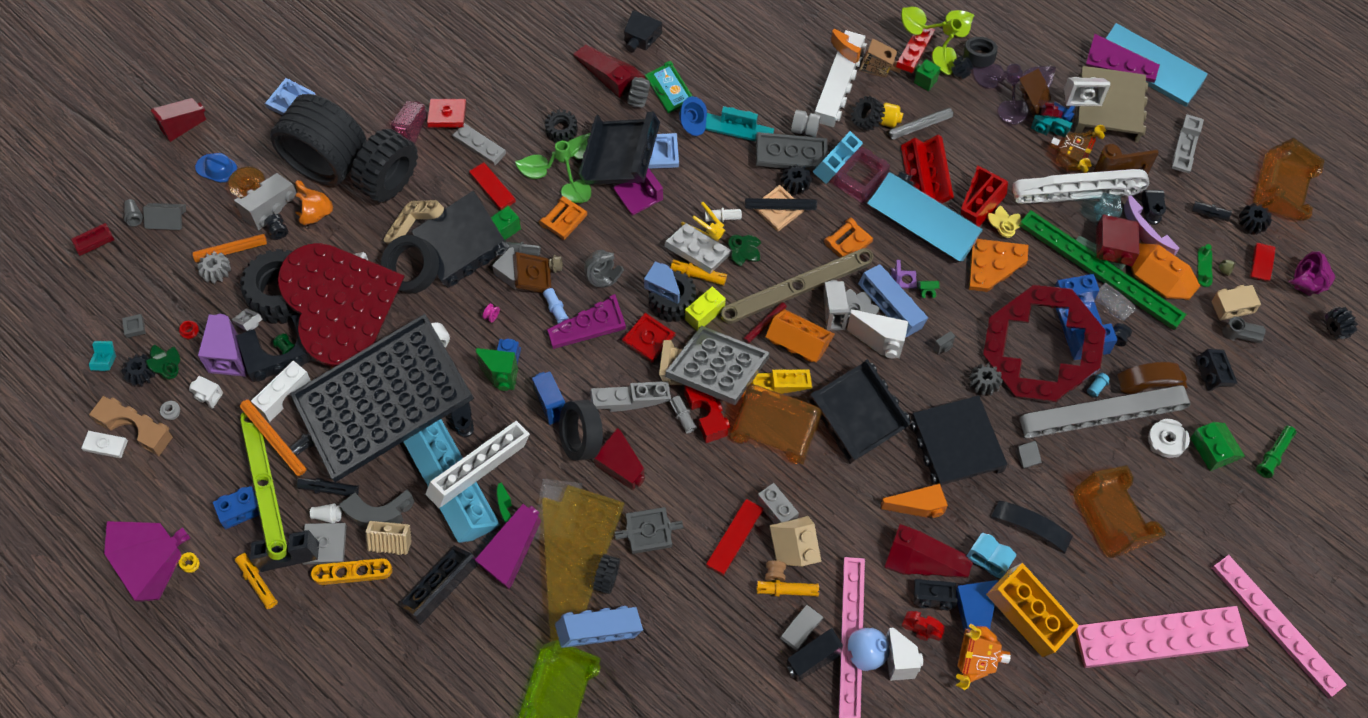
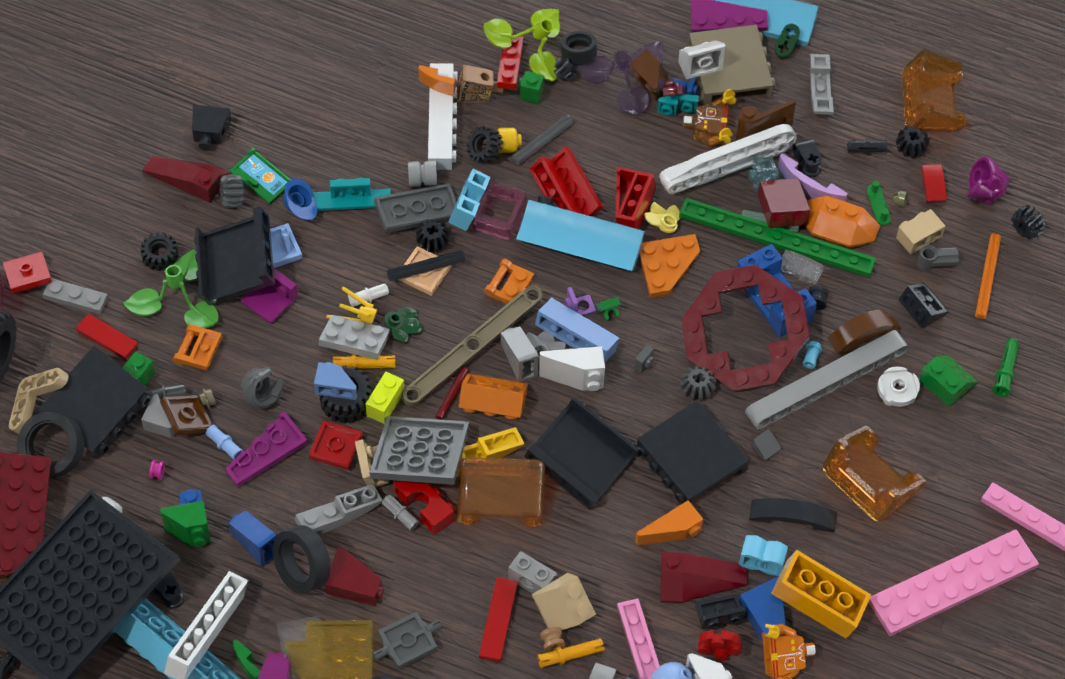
camera: 20 degrees left, 5 degrees down
(1171, 99) = (790, 43): none -> dark green beam
(1286, 361) = (988, 275): none -> orange axle

